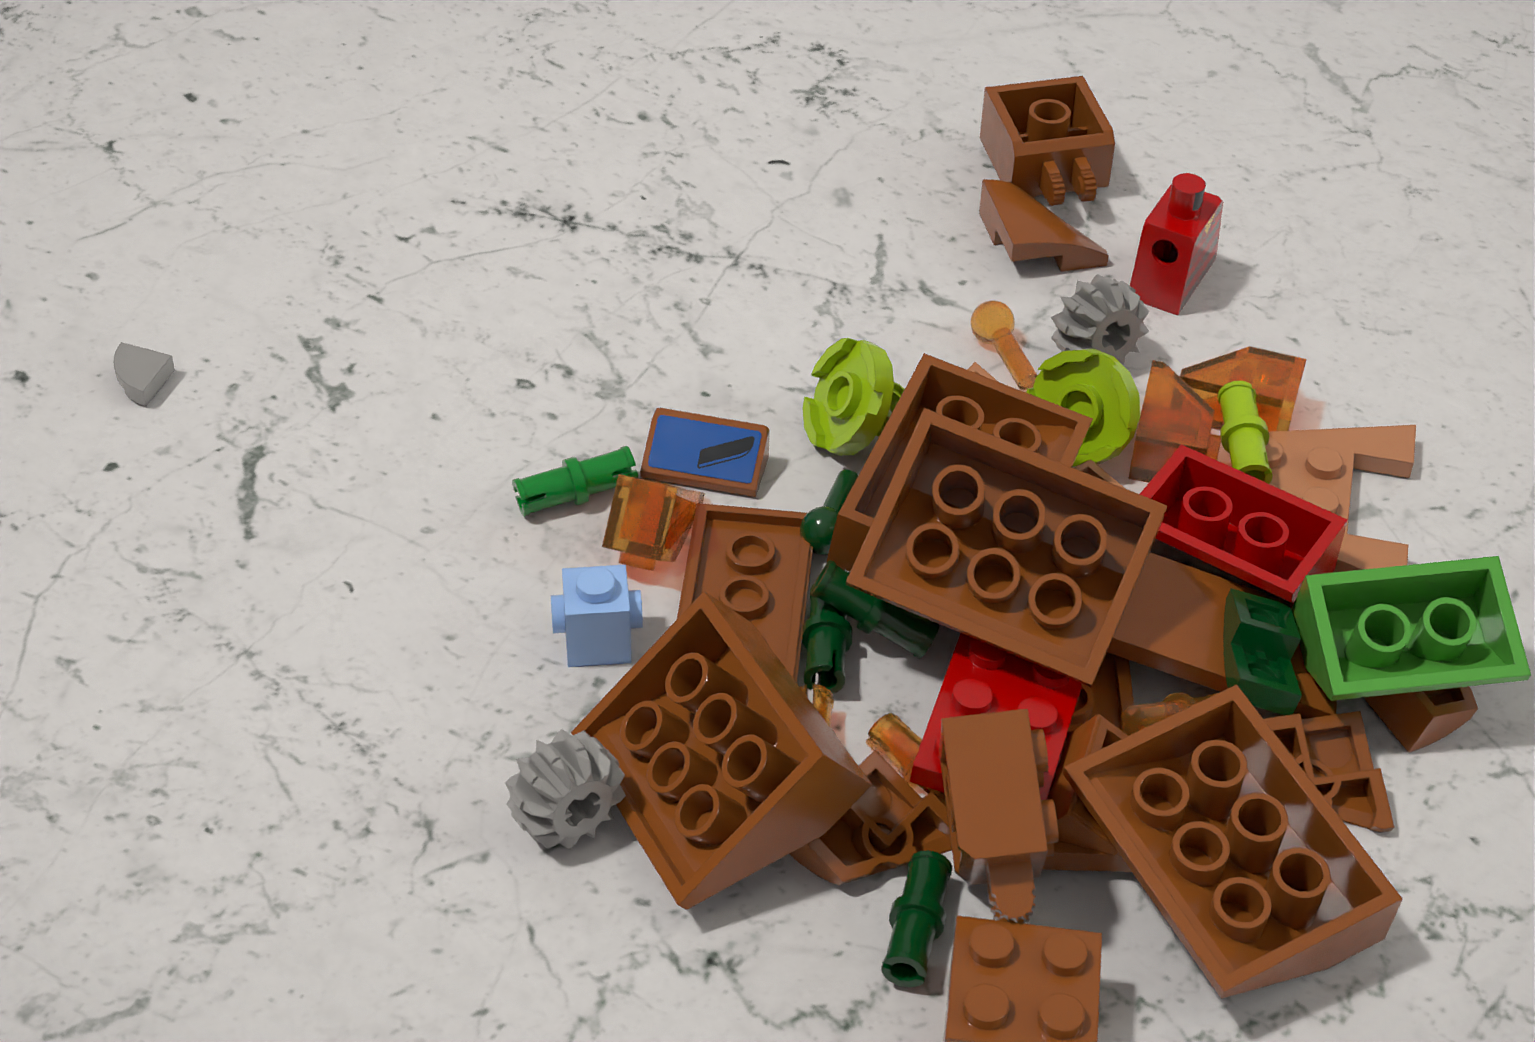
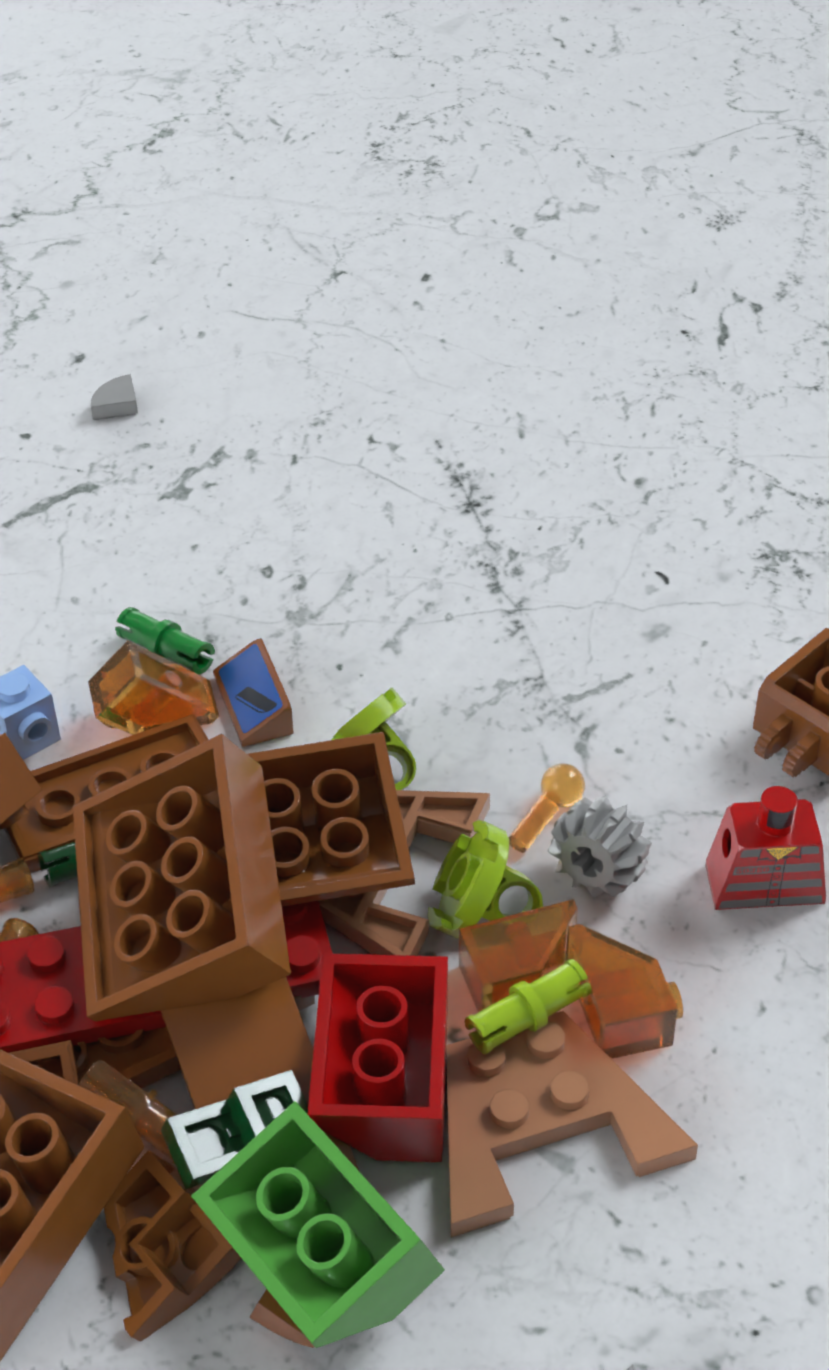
camera: 60 degrees right, 0 degrees up
(1033, 230) = (716, 754): dark orange slope -> none

